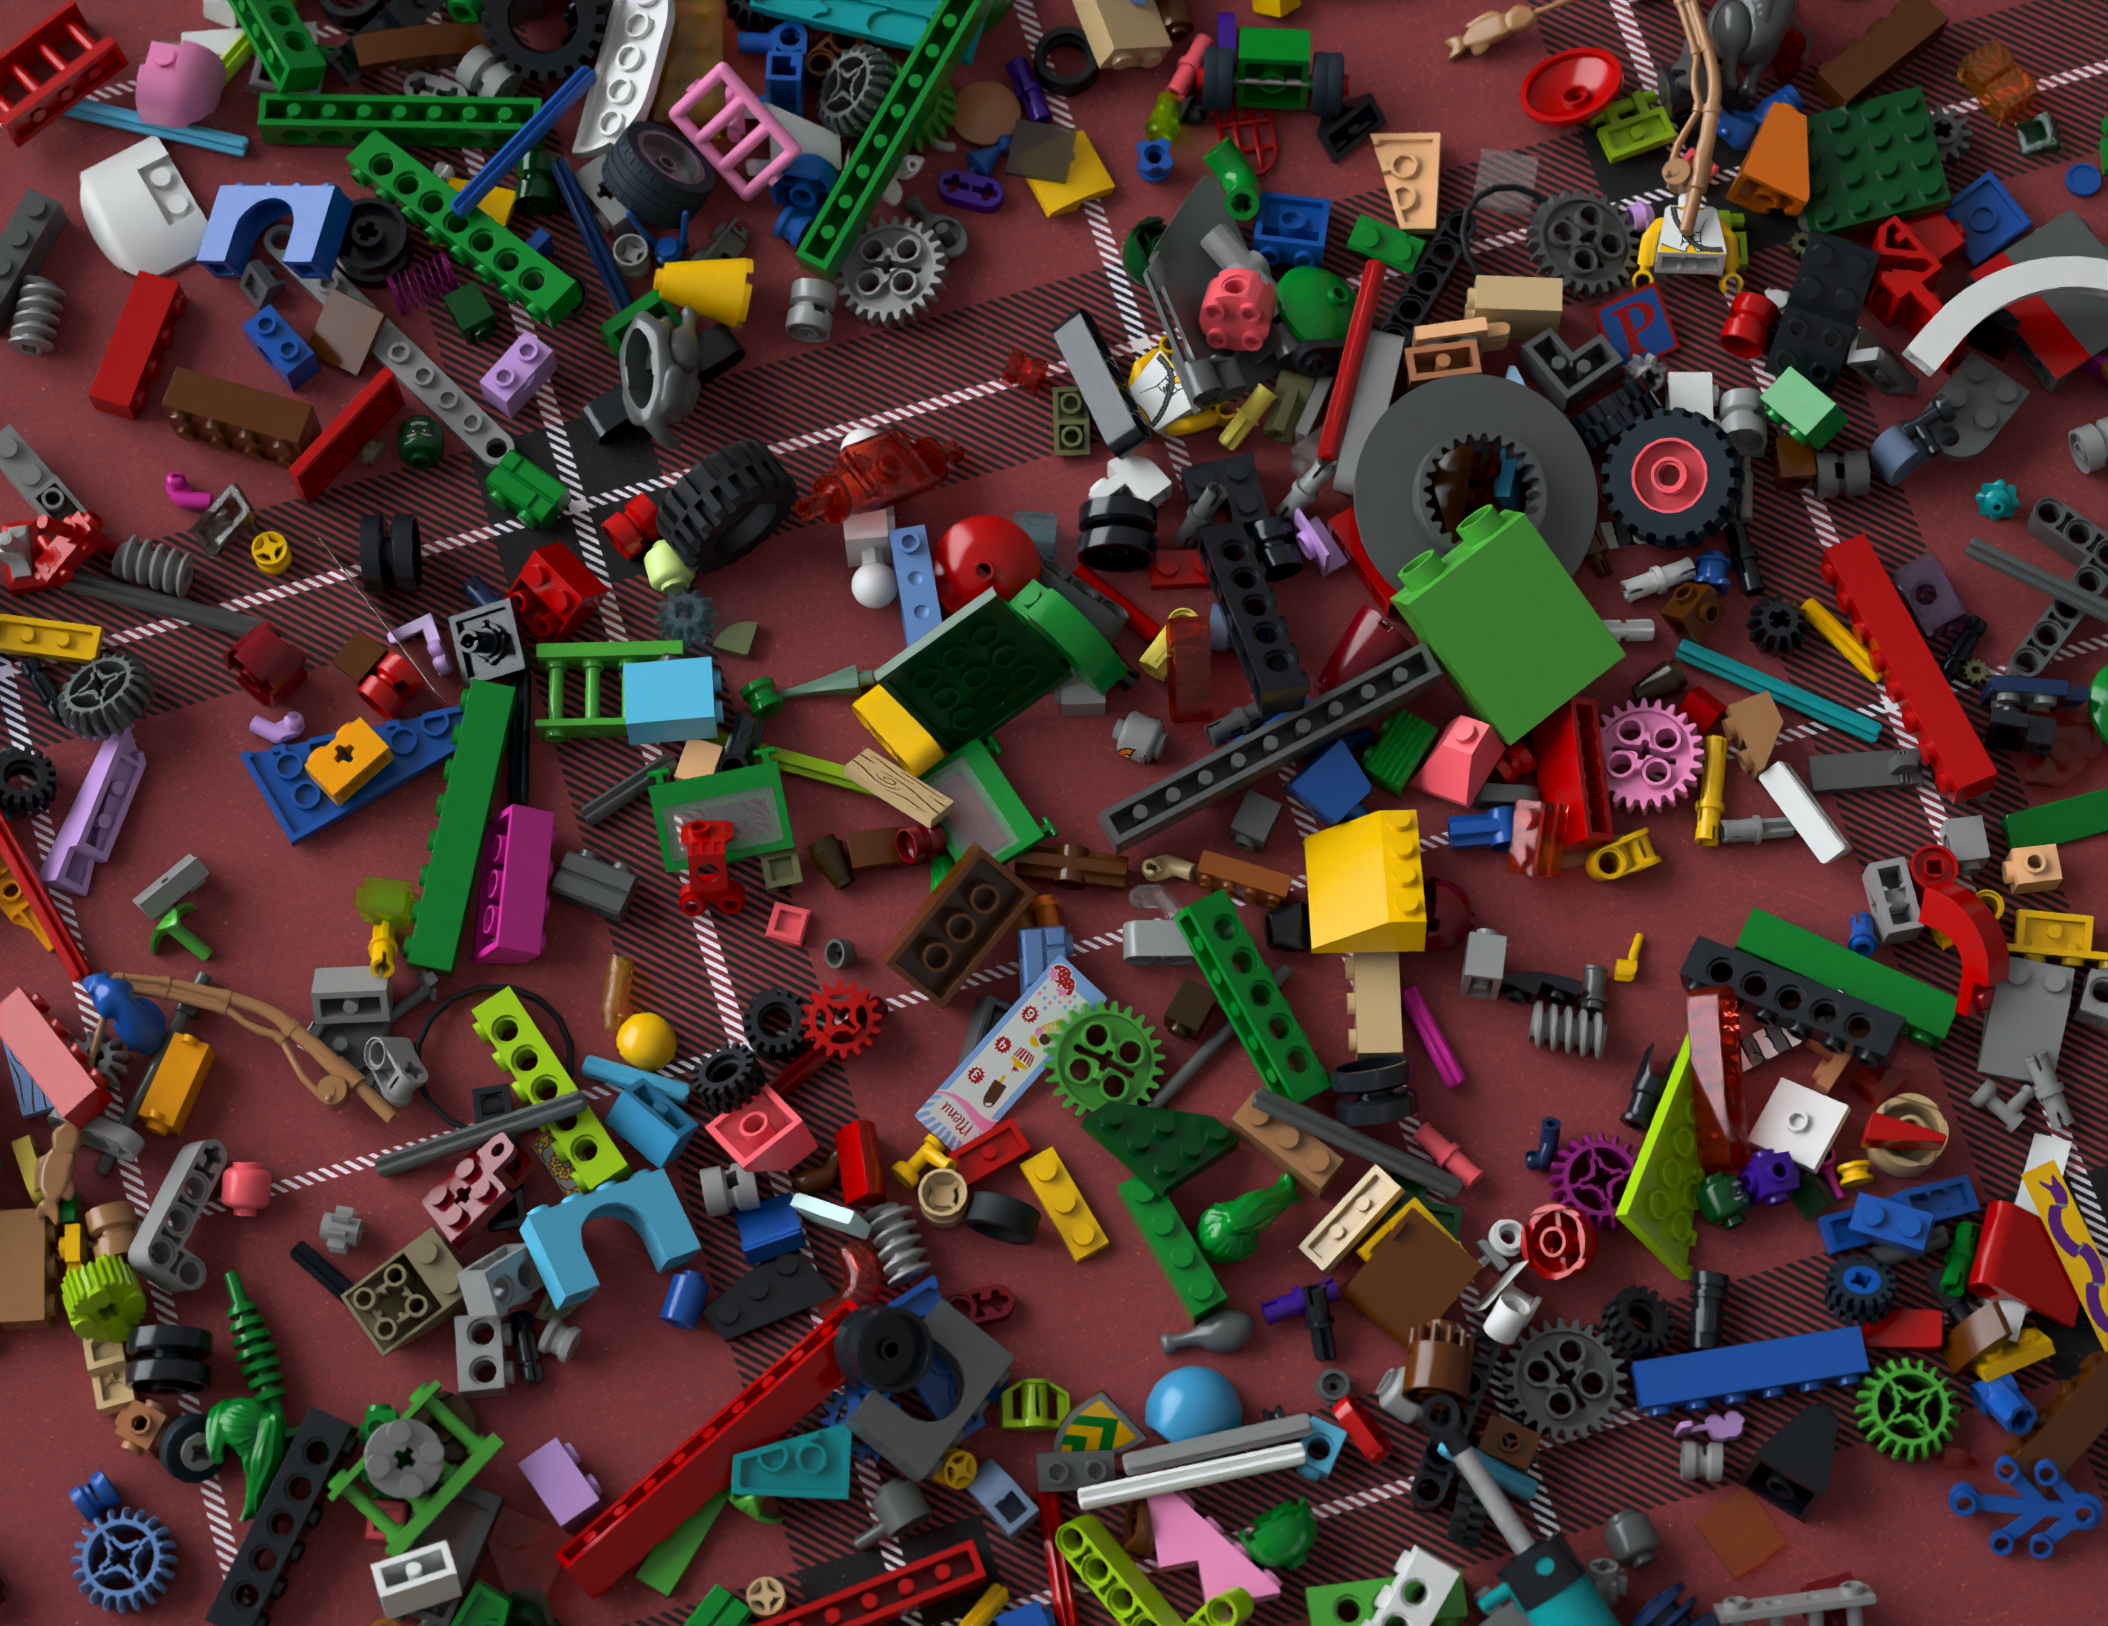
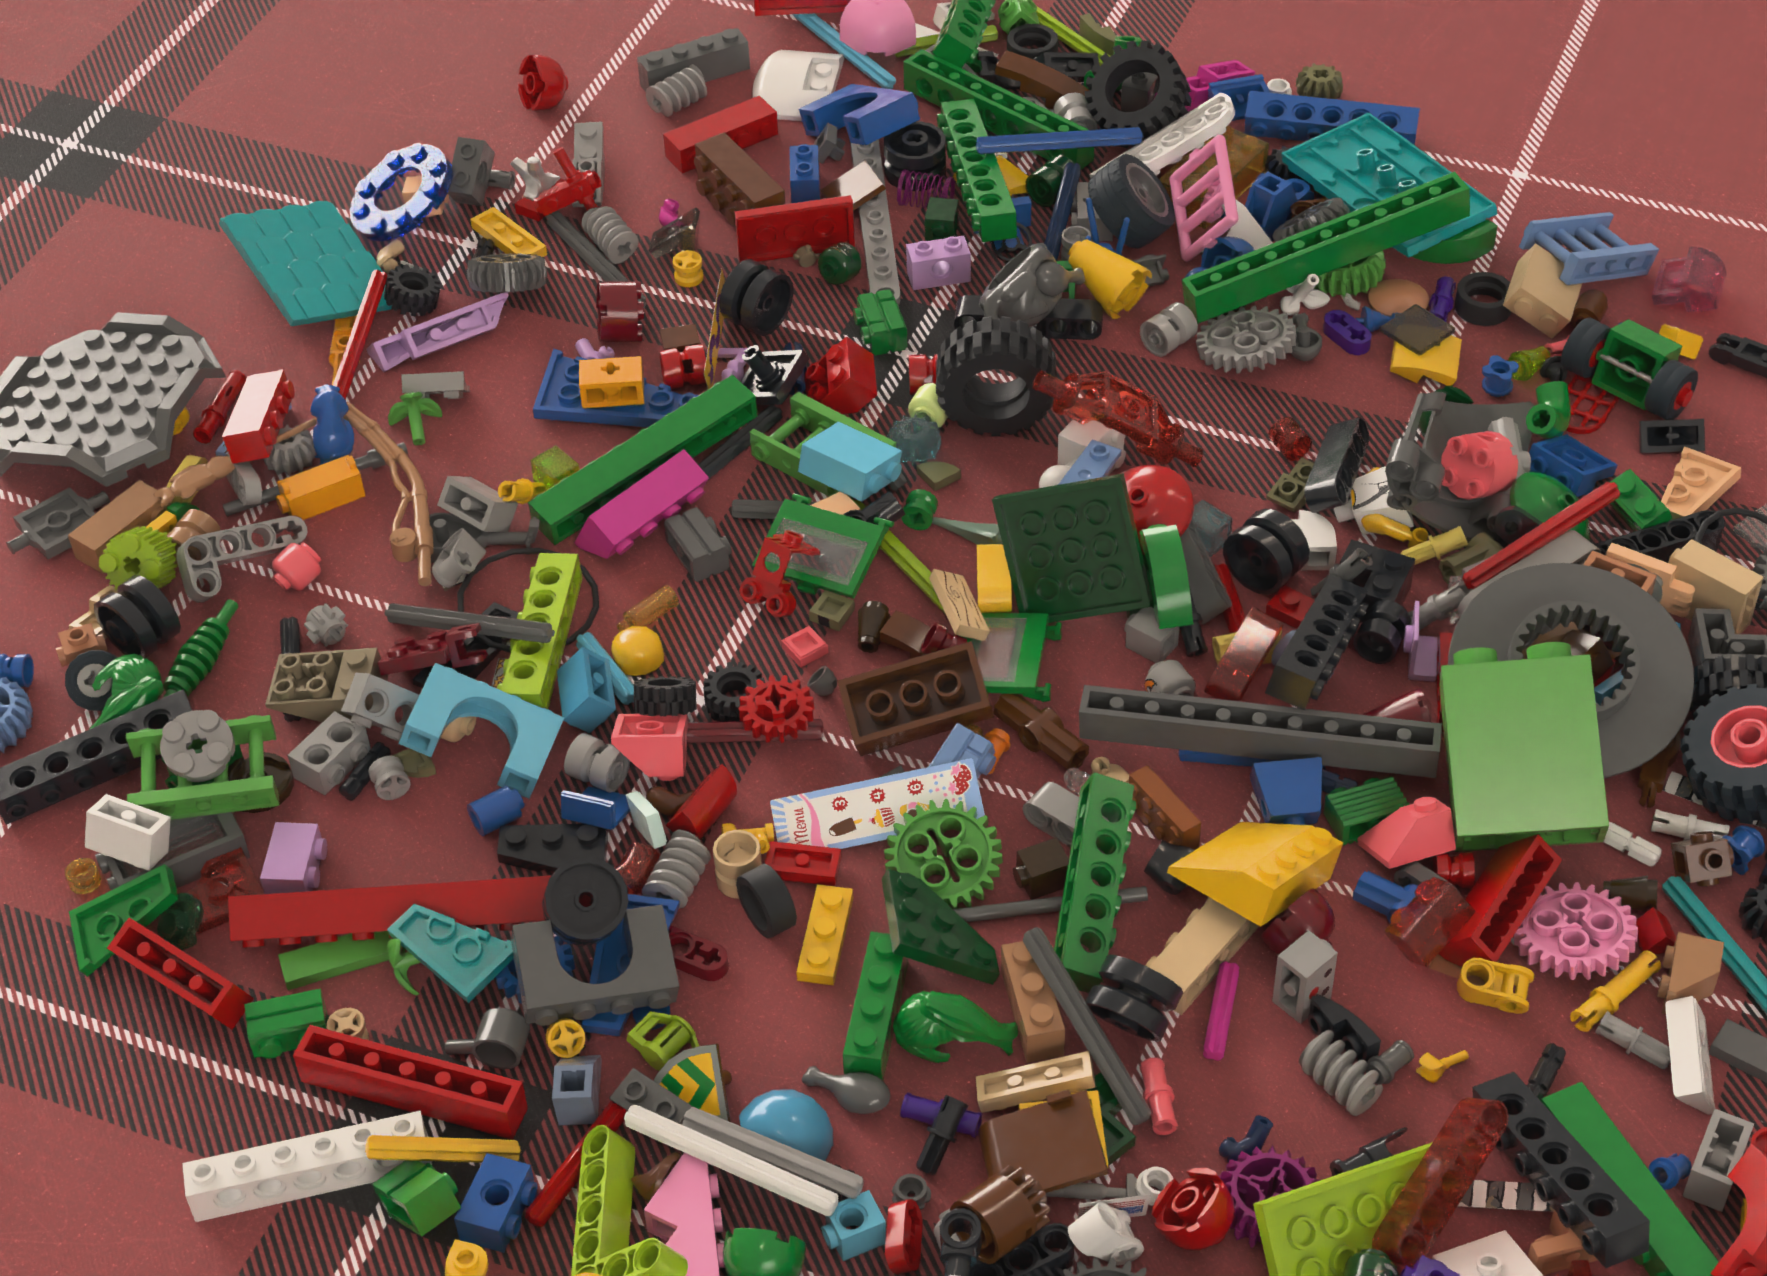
camera: 40 degrees right, 25 degrees down
(1254, 822) = (1208, 784): dark grey brick -> none
(1711, 911) = (1546, 1070): none -> black axle

